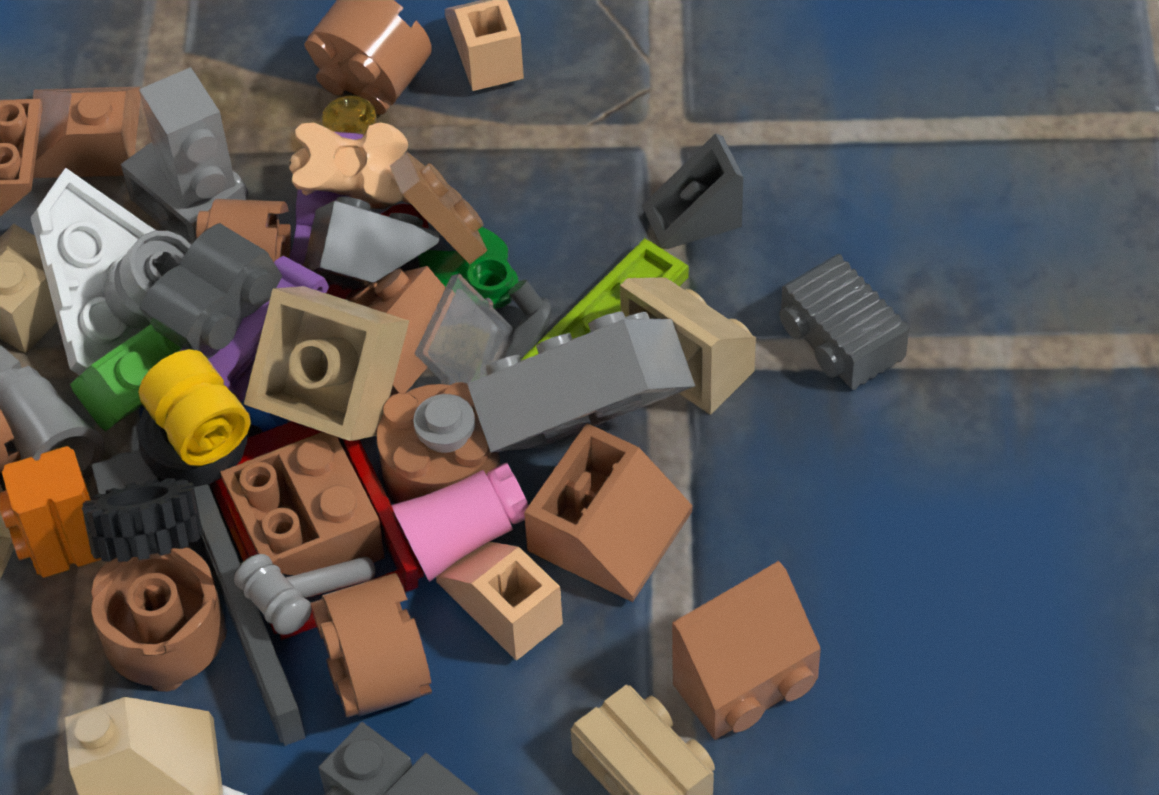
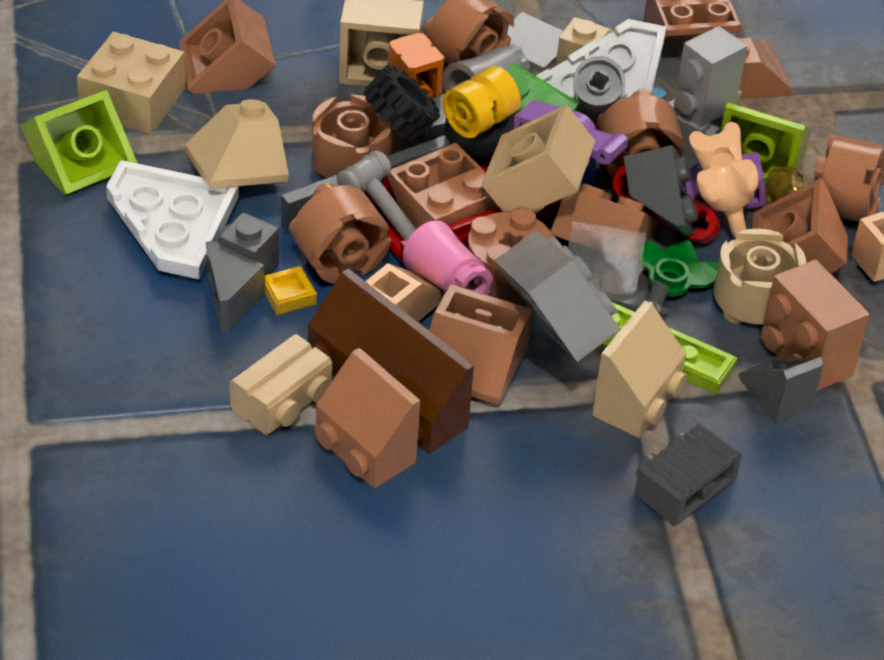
camera: 75 degrees right, 10 degrees down
(211, 291) = (589, 93): dark grey brick -> none
(263, 130) = (774, 138): none -> lime slope
(439, 735) = (289, 290): none -> yellow tile
(440, 205) = (707, 218): medium nougat wing -> none
(444, 422) = (507, 229): light grey plate -> none
(450, 124) = (810, 222): none -> nougat slope
(526, 181) = (748, 270): none -> tan brick
(619, 616) = (363, 318): none -> reddish brown slope
(630, 136) = (815, 318): none -> nougat brick

